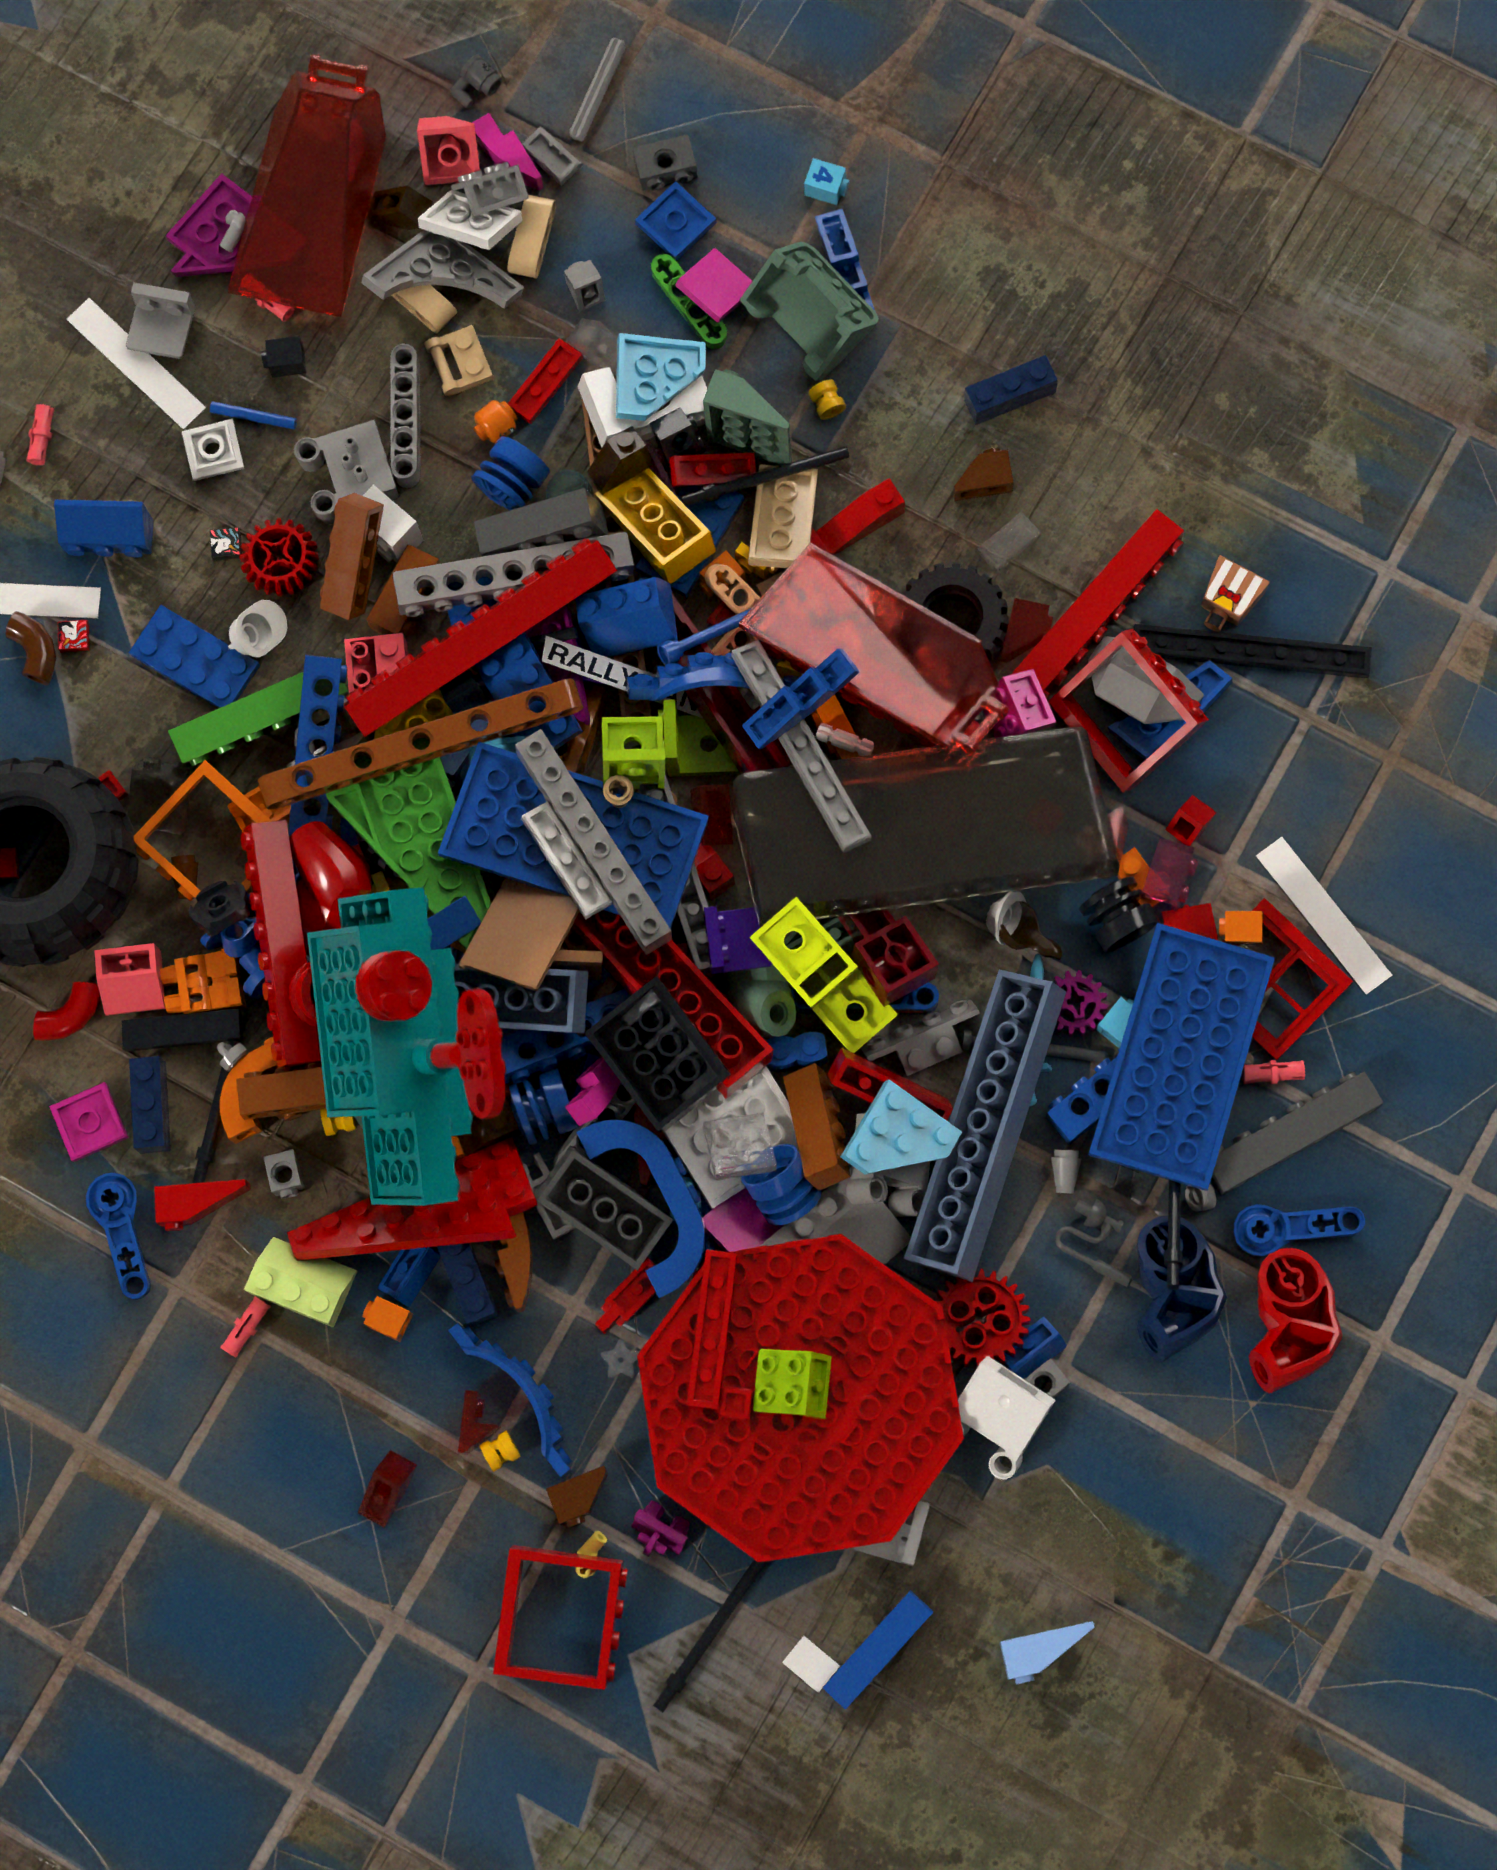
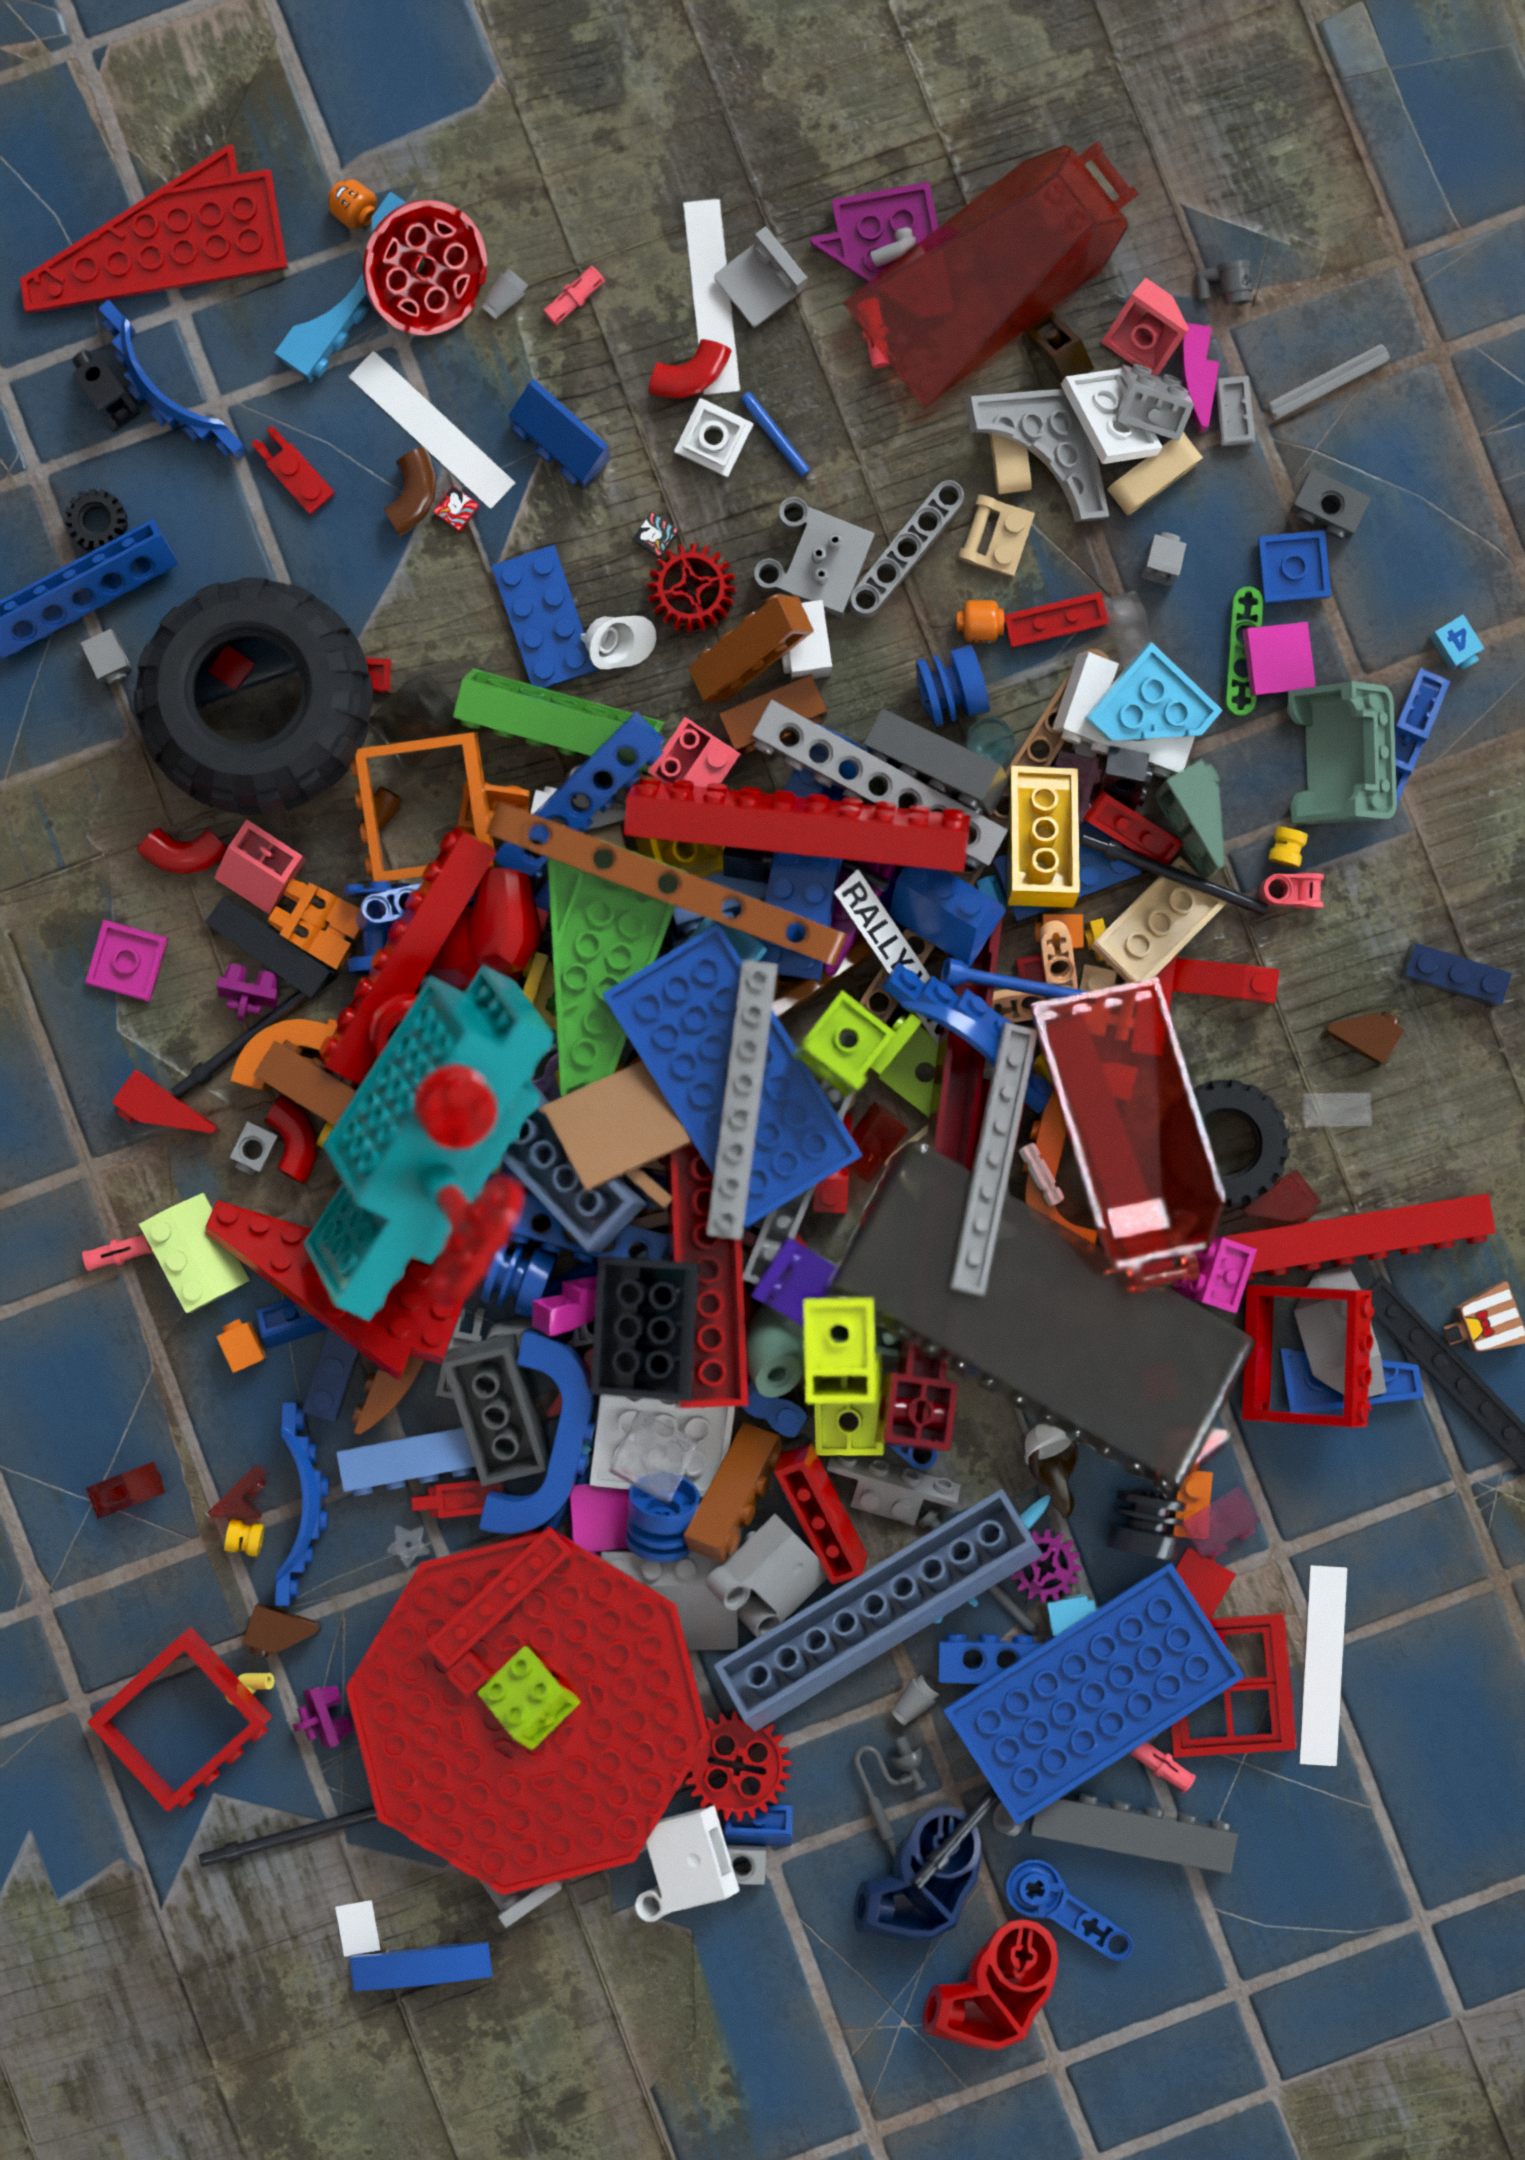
camera: 30 degrees right, 10 degrees up
(119, 1226) = (79, 1075): blue beam -> none
(149, 1105) = (187, 992): dark blue brick -> none
(165, 419) = (691, 376): none -> red cylinder
(193, 1073) = (248, 997): none -> magenta hips
(230, 1054) = (290, 1012): light grey tile -> none
(233, 908) = (381, 892): black plate -> none
(284, 356) = (845, 404): black brick -> none
(310, 1142) = (298, 1139): none -> red cylinder
(452, 923) = (565, 1066): blue slope -> none
(566, 860) = (706, 1094): white tile -> none
(570, 1299) = (405, 1459): none -> medium blue brick
(616, 785) = (809, 1075): tan cone -> none
(619, 460) = (1056, 756): dark brown slope -> none
(801, 699) = (1026, 1122): blue slope -> none
(858, 420) = (1299, 890): none -> coral piece
(898, 1133) = (793, 1564): medium azure plate -> none
(1035, 1652) = (551, 2078): light blue slope -> none
(1190, 821) = (1278, 1493): red brick -> none
(1242, 927) = (1240, 1626): orange brick -> none

